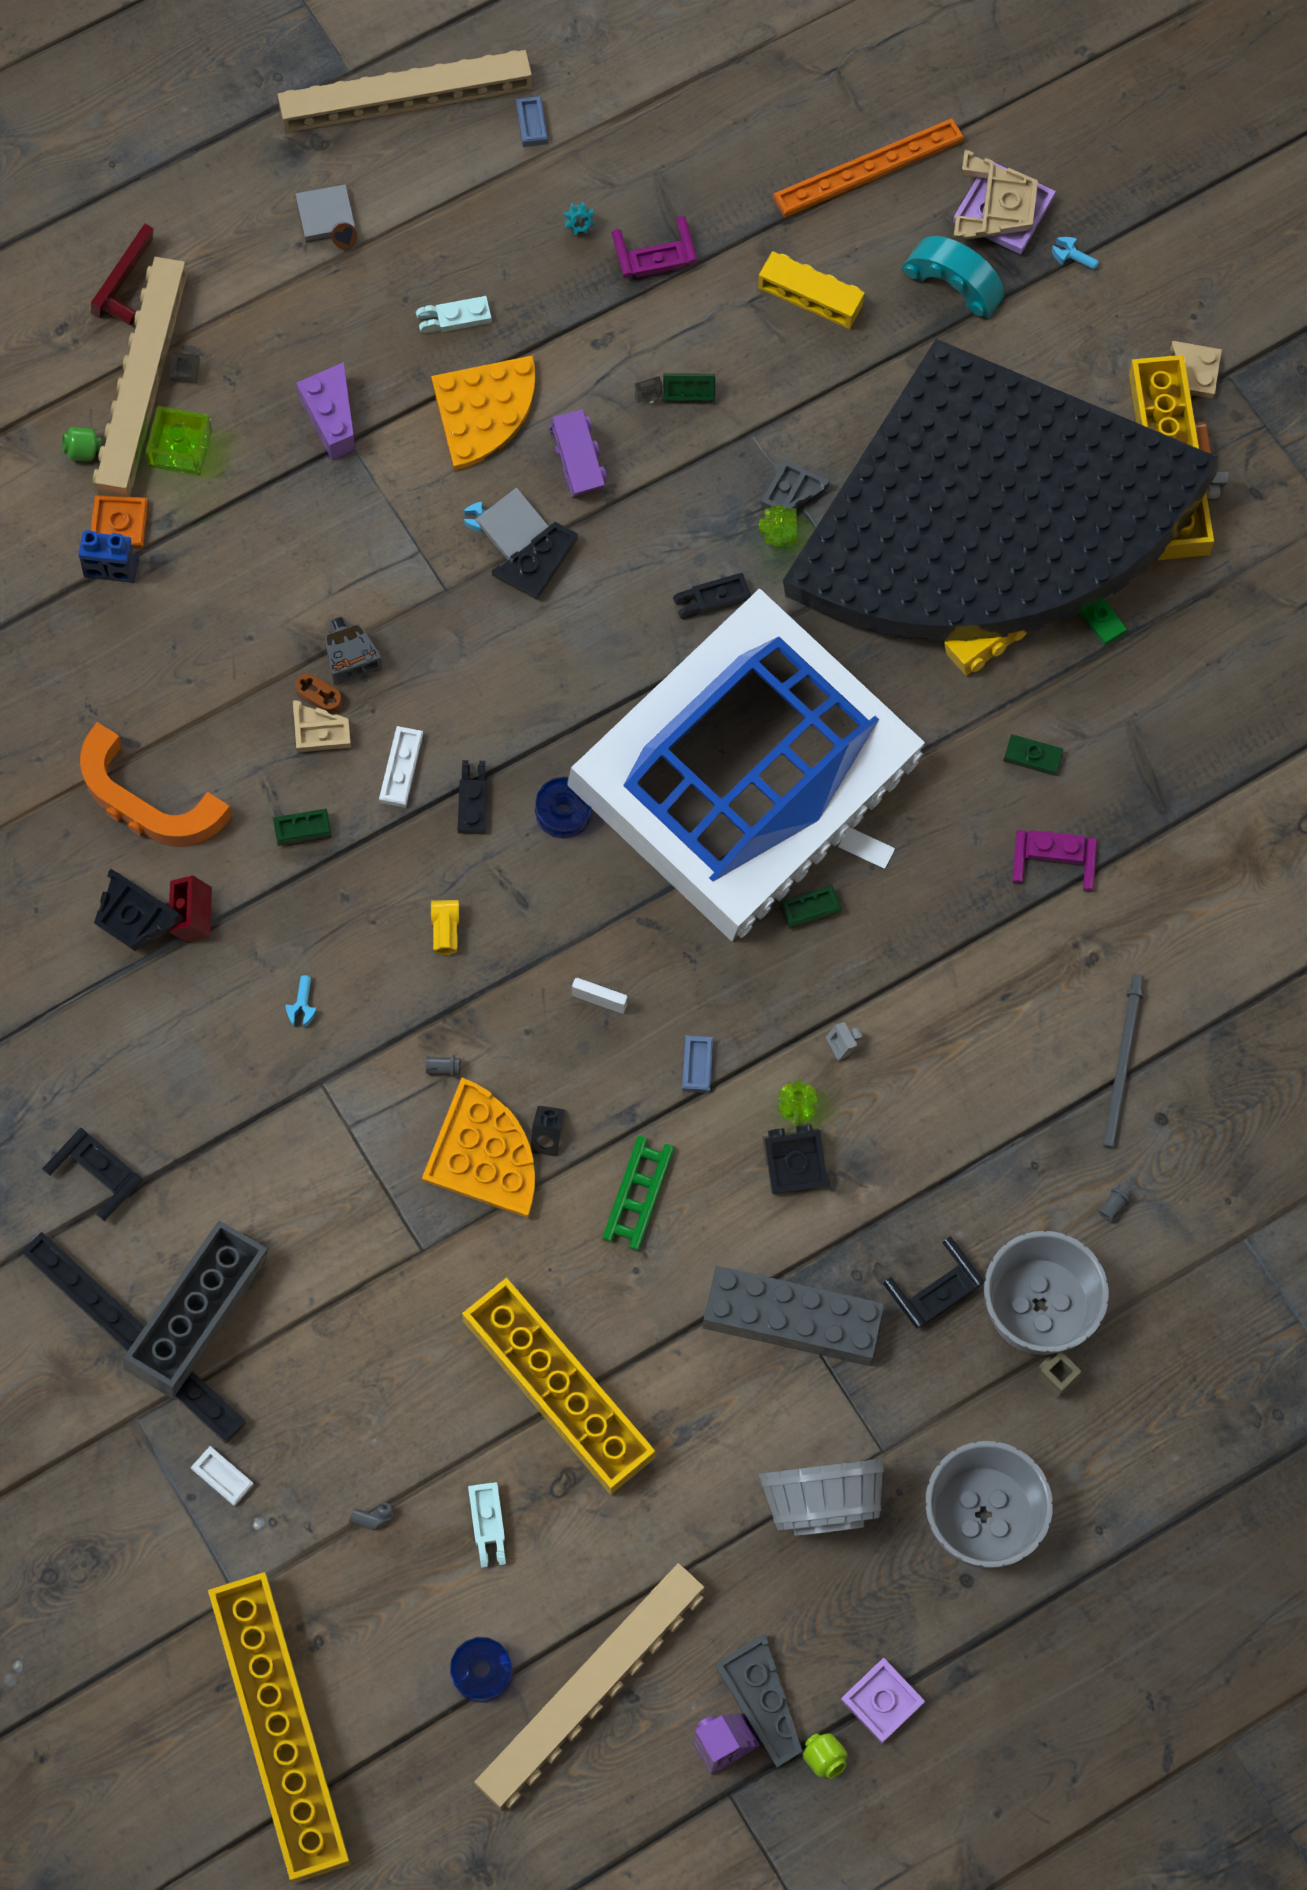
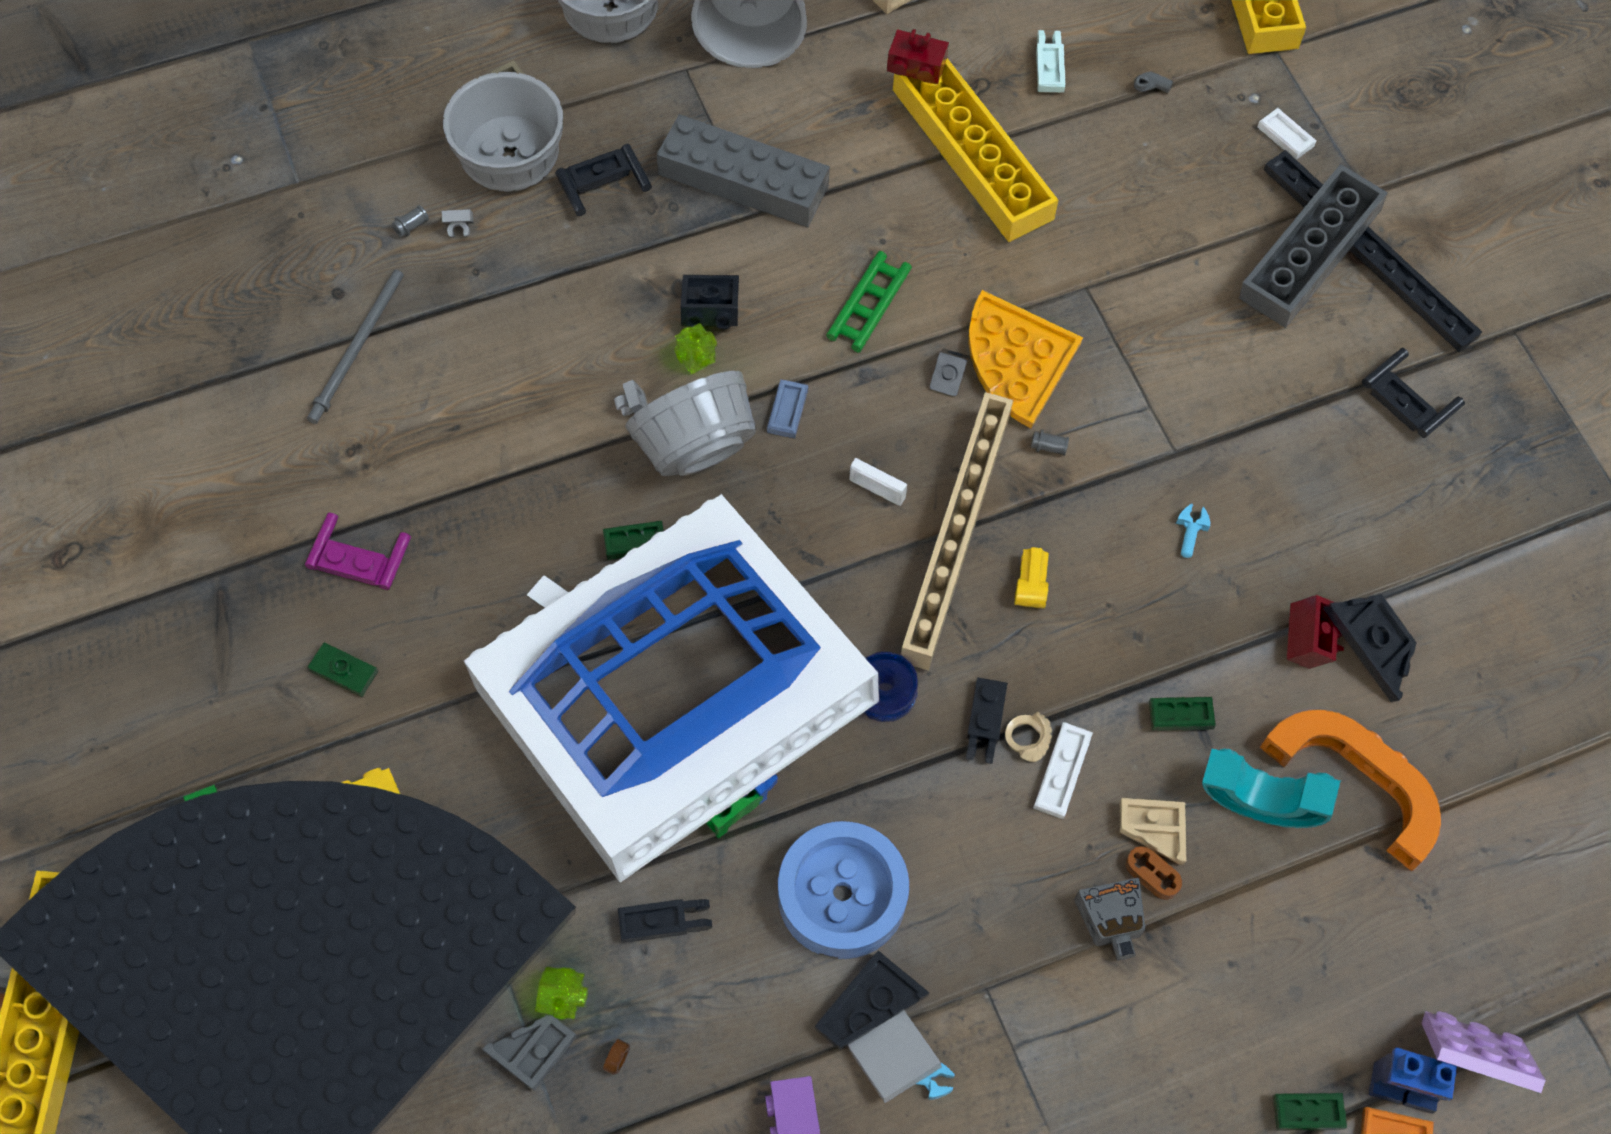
camera: 170 degrees left, 5 degrees down
(55, 579) = (1482, 1051): none -> lavender plate
(186, 534) = (1309, 1111): none -> dark green plate
(225, 762) = (1266, 798): none -> teal brick
(427, 777) = (1034, 751): none -> tan piece
(519, 957) = (956, 531): none -> tan brick
(572, 610) = (848, 857): none -> medium blue brick
(632, 1455) = (917, 56): none -> dark red brick
(726, 491) = (616, 1057): none -> reddish brown tile
(778, 993) = (695, 424): none -> light grey piece
(1068, 1211) = (457, 218): none -> light grey tile

